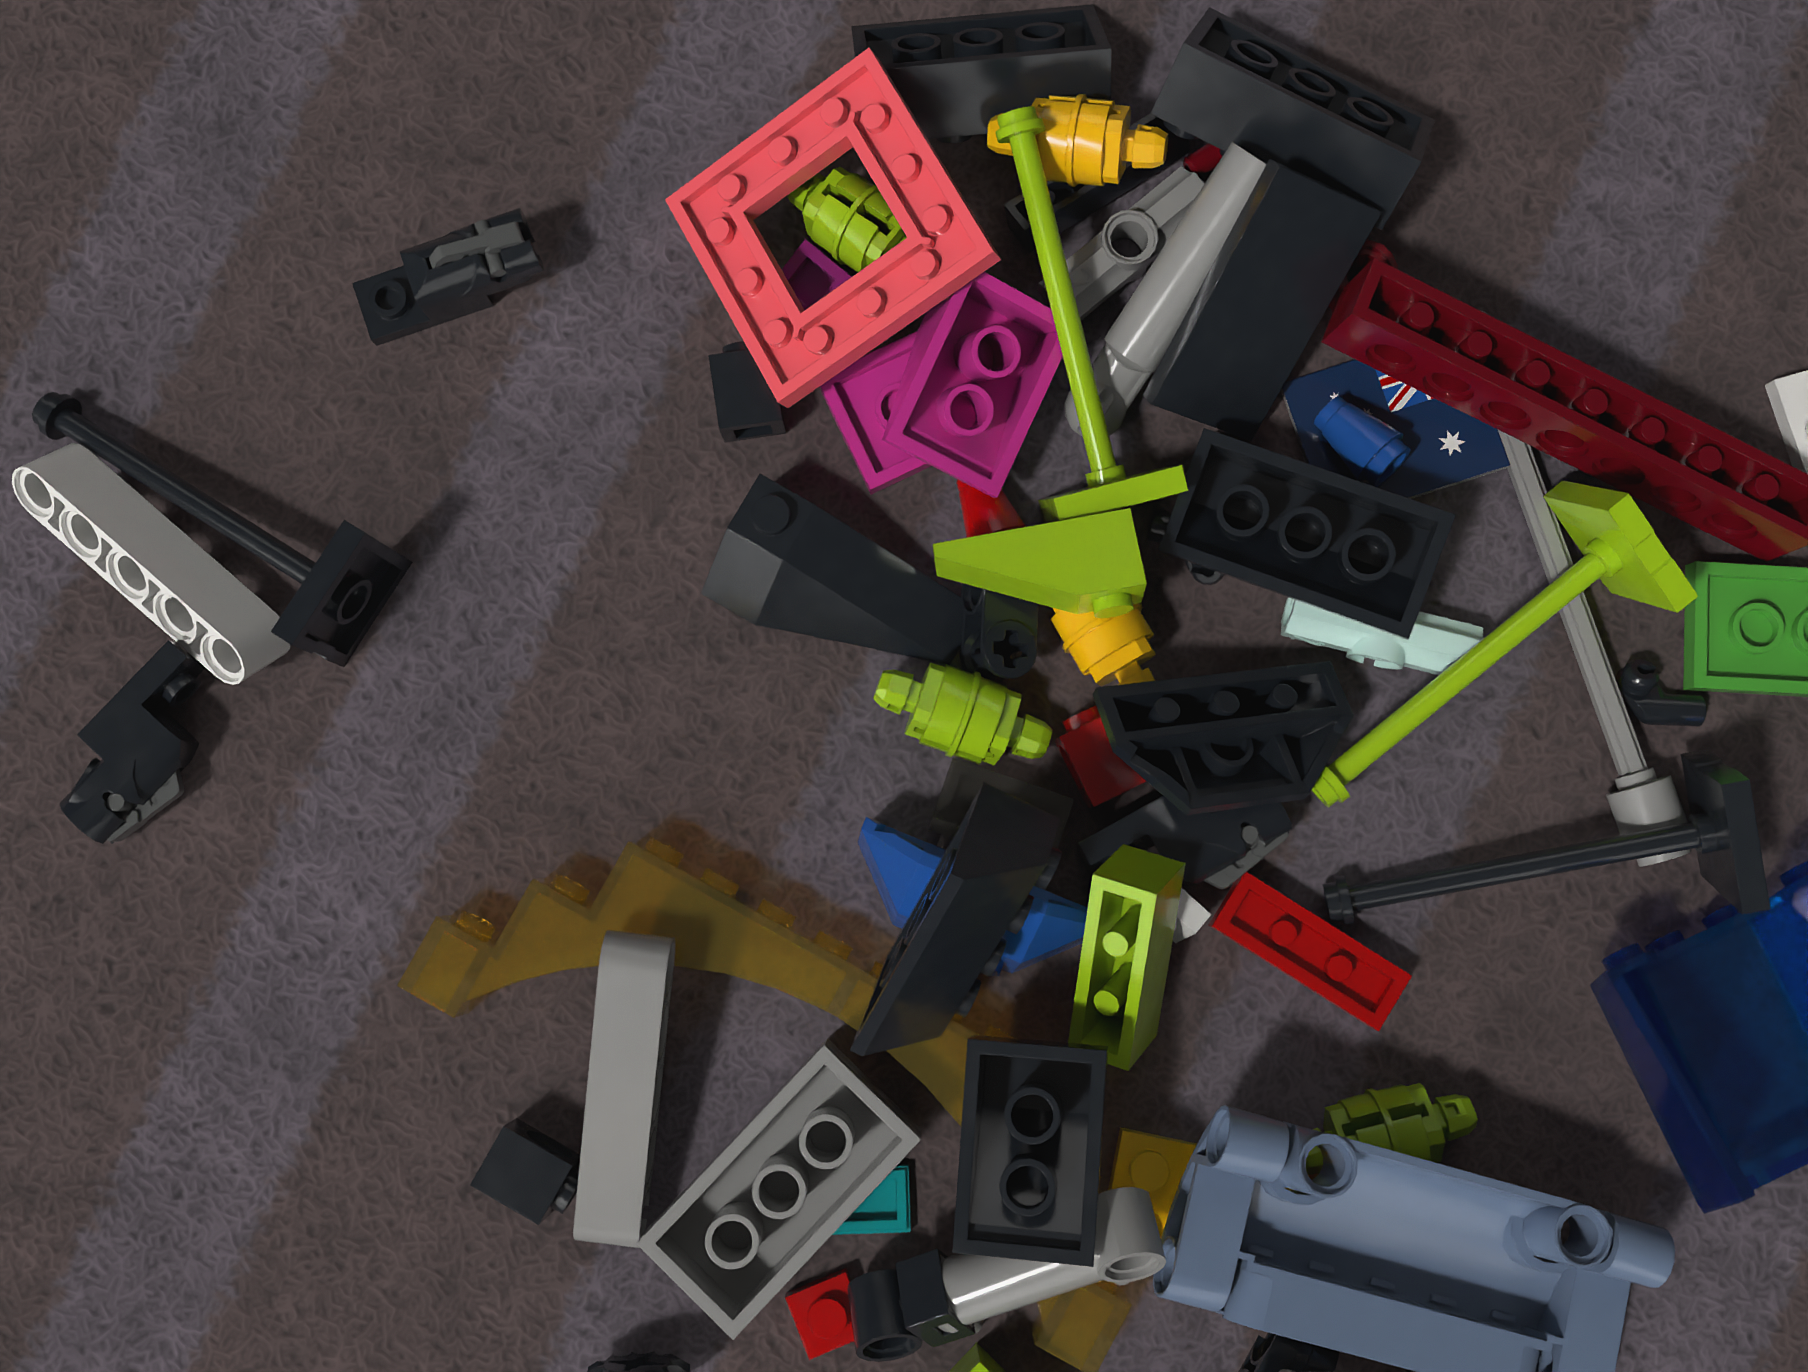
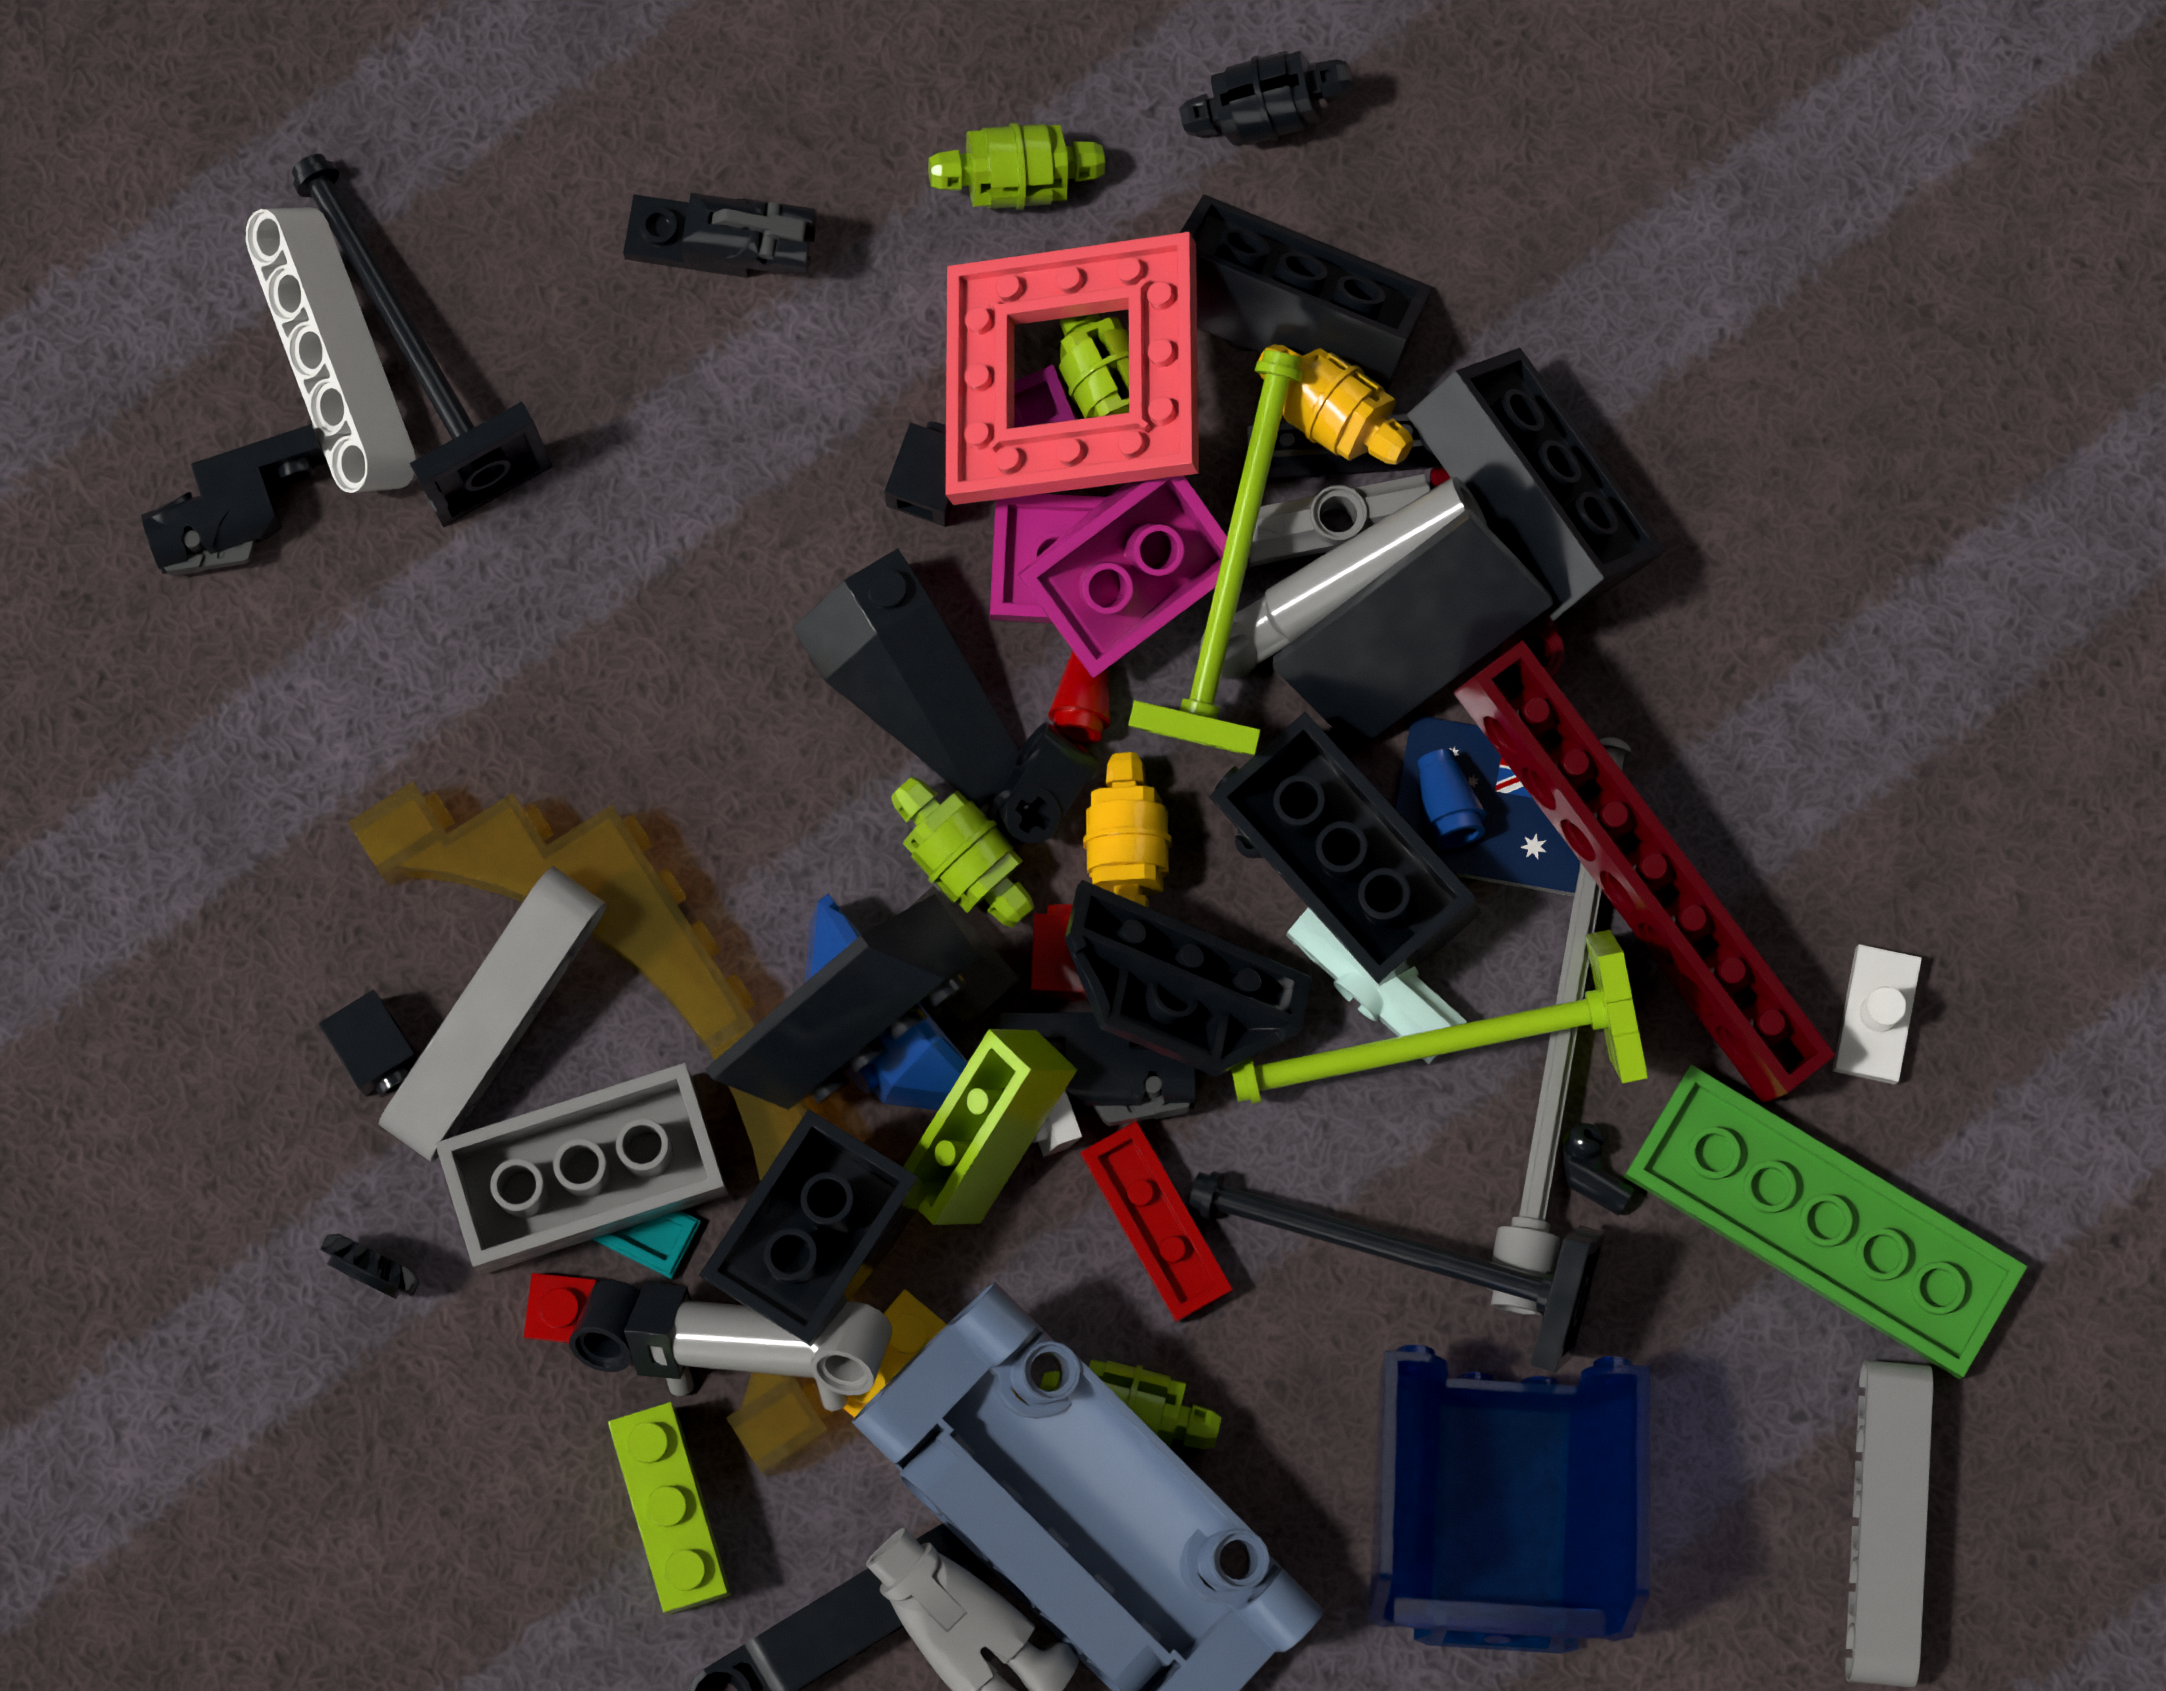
camera: 25 degrees right, 5 degrees down
(677, 80) = (1016, 166): none -> lime piece
(1060, 564) = (1112, 761): lime slope -> none

